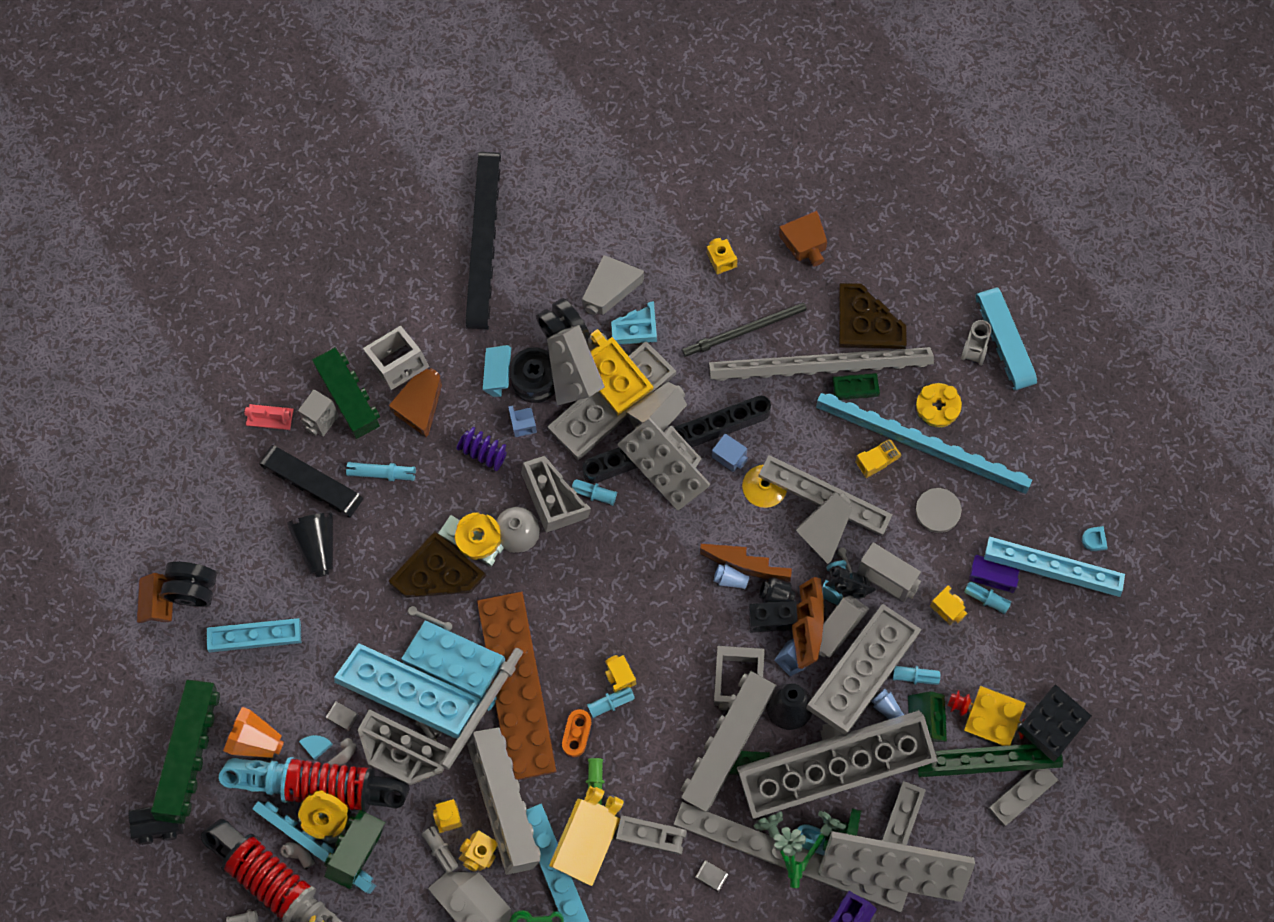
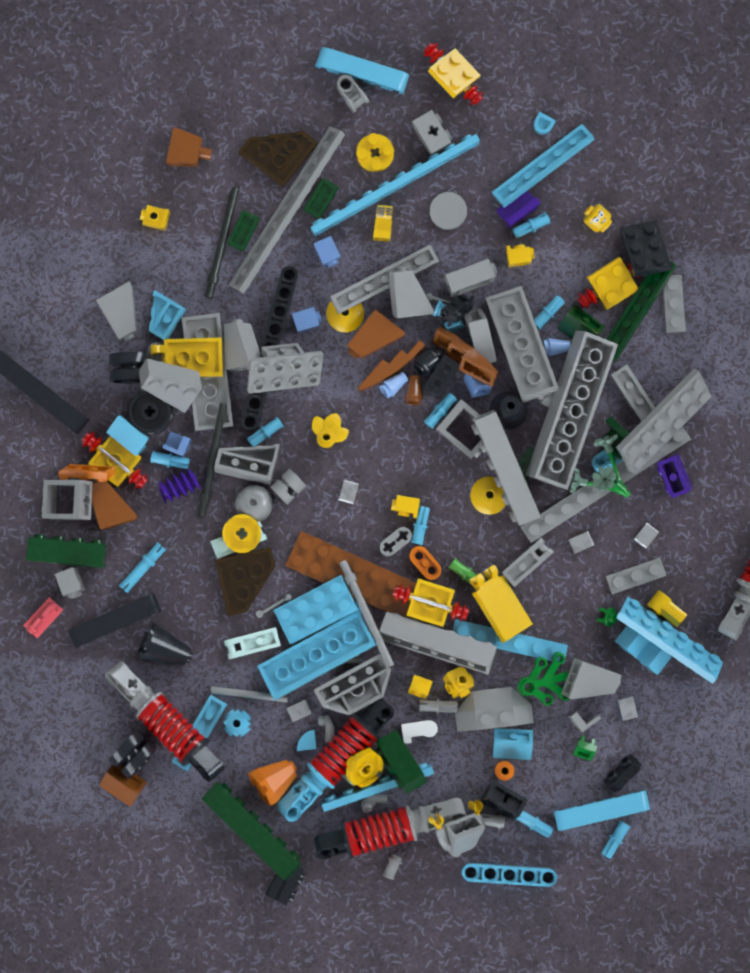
camera: 60 degrees left, 15 degrees up
(239, 595) = (166, 723): none -> piece
(292, 667) = (244, 719): none -> medium azure brick
(323, 653) = (246, 694): none -> light grey bar
(379, 624) = (253, 643): none -> light aqua plate
(408, 852) = (427, 728): none -> white leg
(435, 357) = (87, 472): none -> orange plate
(464, 377) = (115, 455): none -> yellow plate
(492, 480) = (205, 496): none -> pearl dark grey bar
(502, 424) = (170, 460): none -> medium azure axle
(538, 764) = (430, 602): none -> yellow plate
(564, 546) = (288, 486): none -> light grey wheel
(578, 684) = (393, 537): none -> light grey beam
(593, 610) = (348, 491): none -> flat silver piece
(643, 548) = (329, 427): none -> yellow plate
(678, 743) = (479, 498): none -> yellow dish
(738, 640) = (440, 410): none -> medium azure pin
(739, 601) = (414, 391): none -> dark orange cone
(763, 525) = (374, 335): none -> dark orange slope
(770, 340) = (243, 231): none -> dark green plate
(810, 426) = (327, 252): none -> medium blue brick
(1004, 429) = (432, 143): none -> light grey brick
(1046, 655) = (597, 218): none -> yellow head
(1072, 421) = (454, 73): none -> yellow plate

